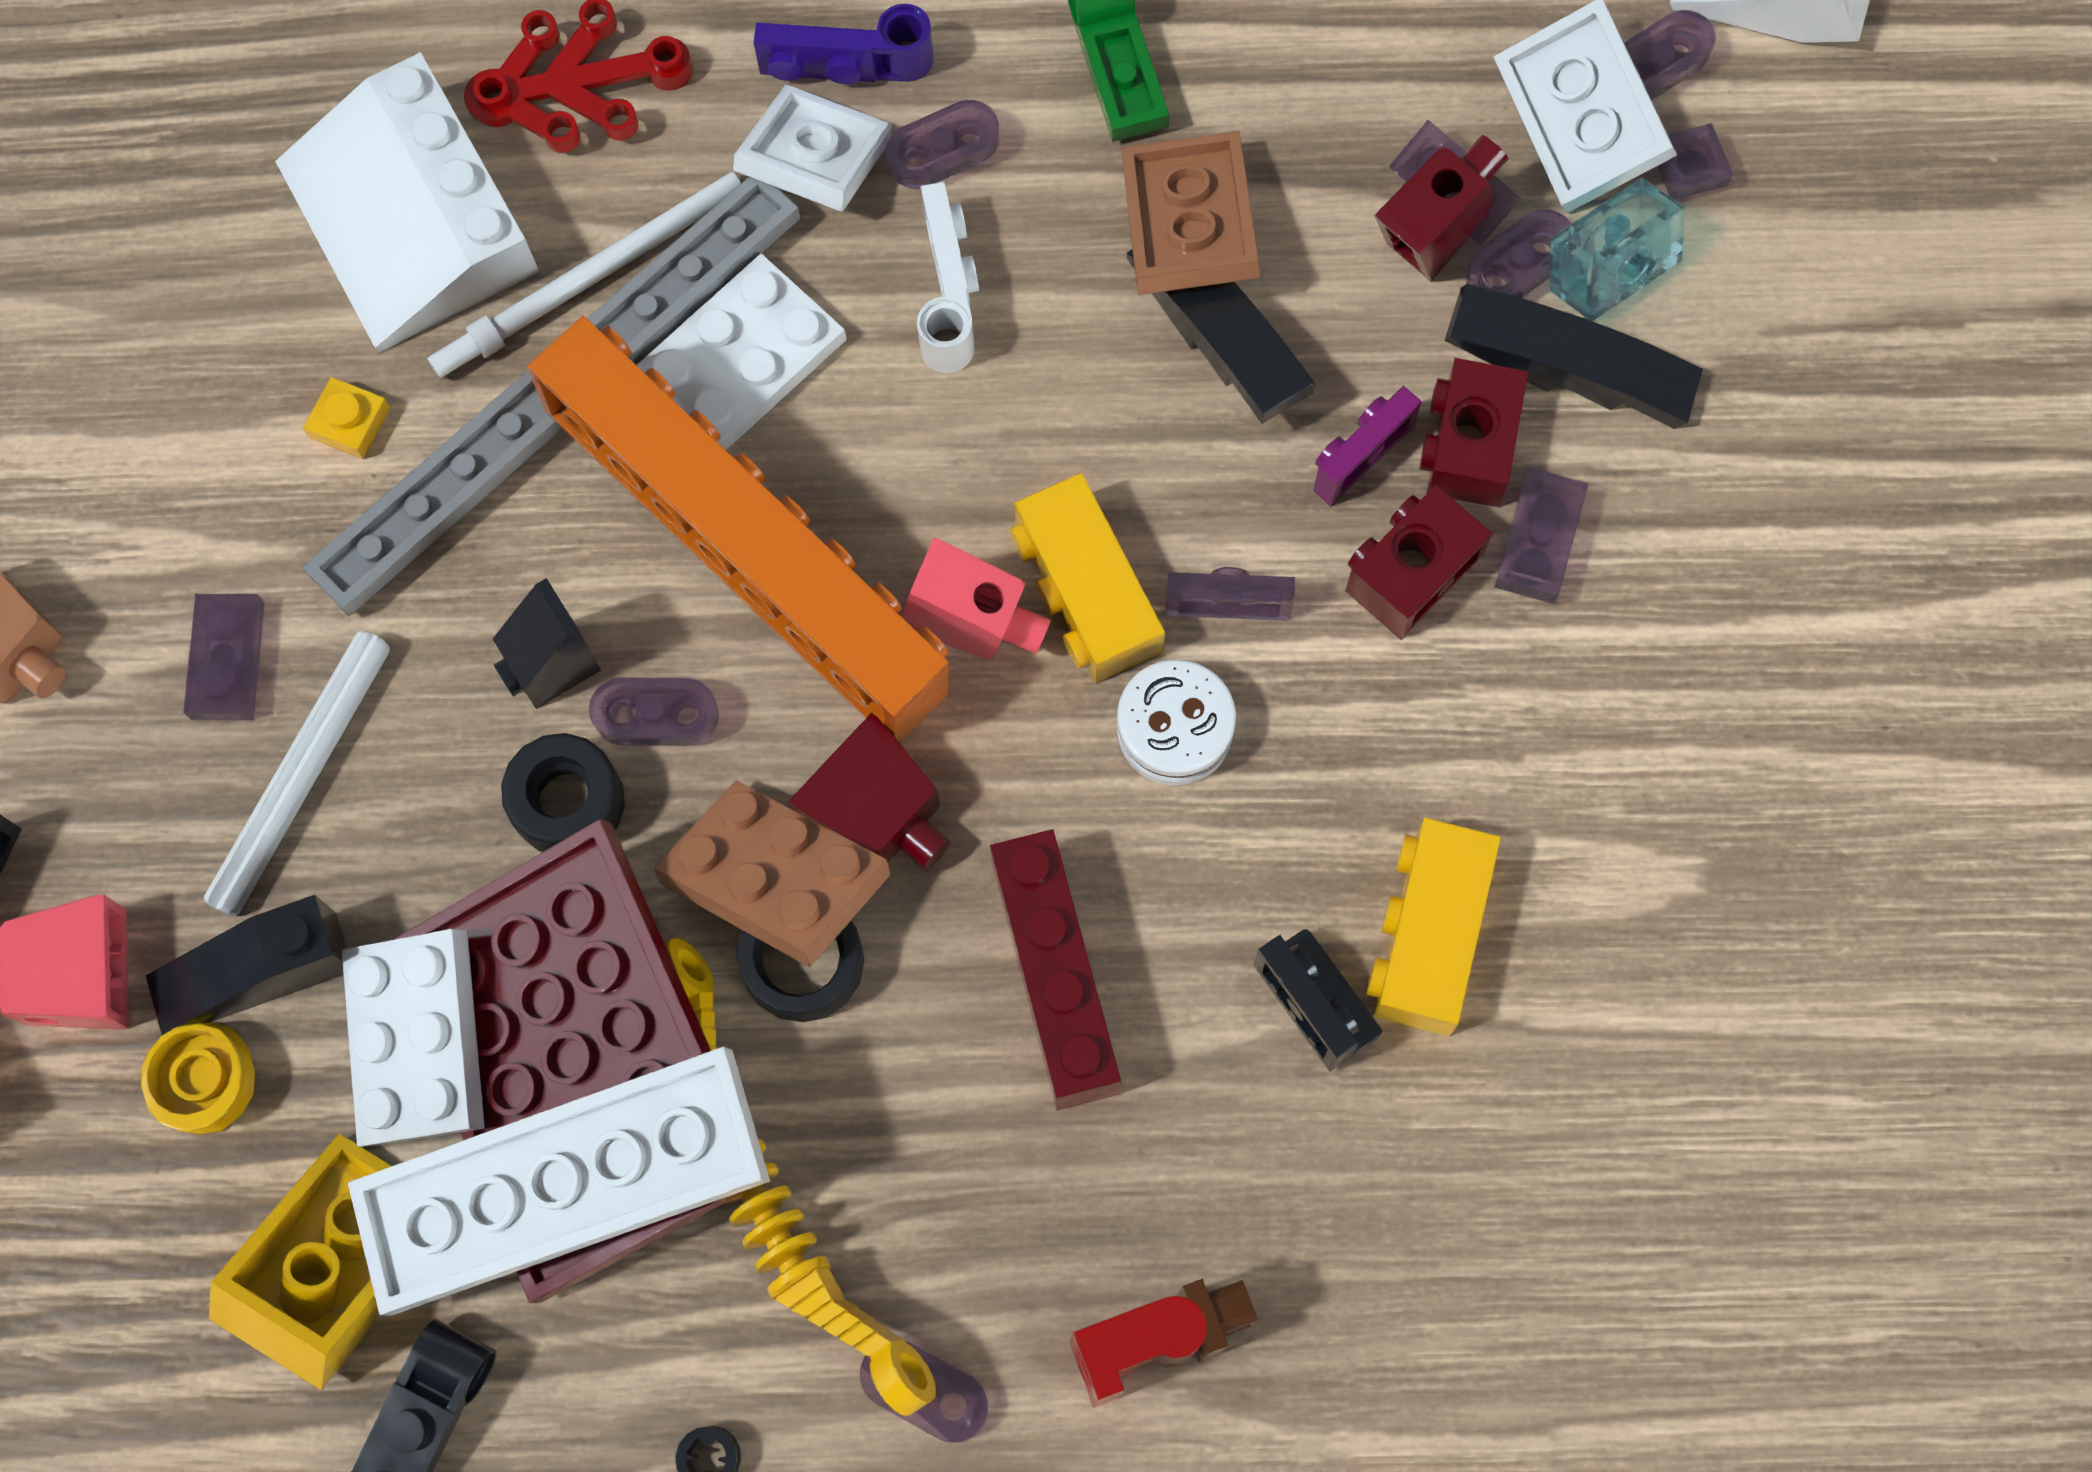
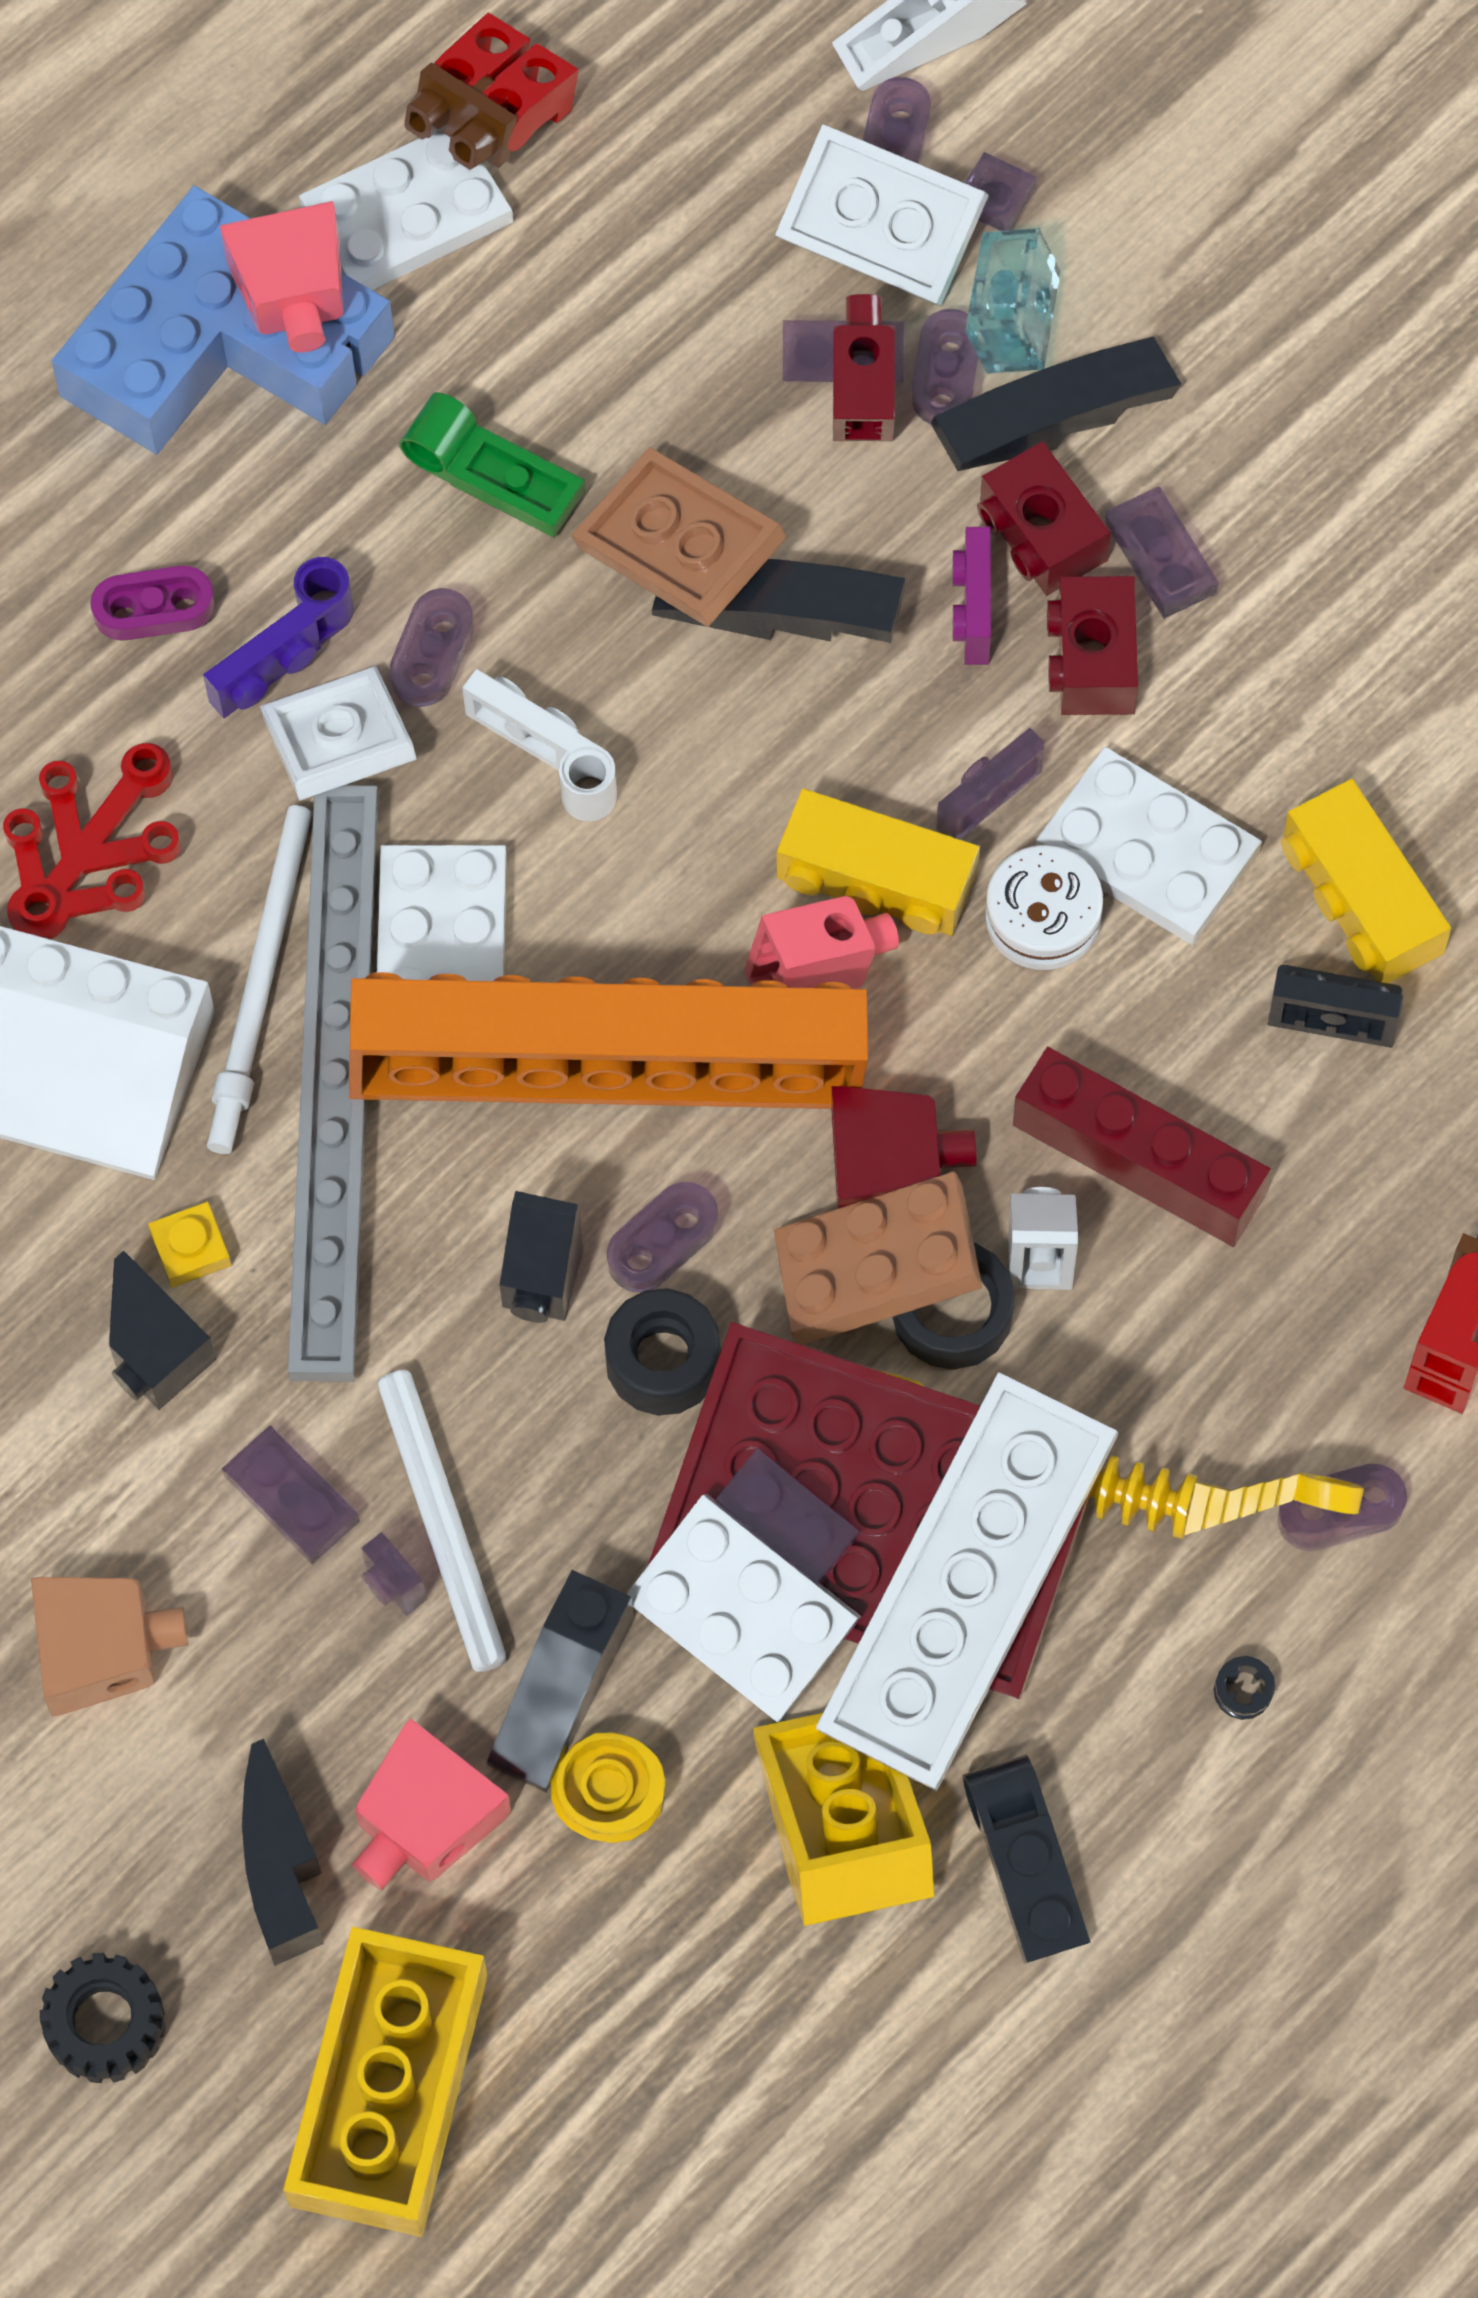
camera: 45 degrees left, 5 degrees down
(217, 778) = (391, 1575): none -> clear purple plate
(246, 455) = (152, 1337): none -> black slope
(500, 1003) = (788, 1516): none -> clear purple plate
(909, 967) = (1042, 1239): none -> white slope
(1306, 748) = (1152, 844): none -> white plate

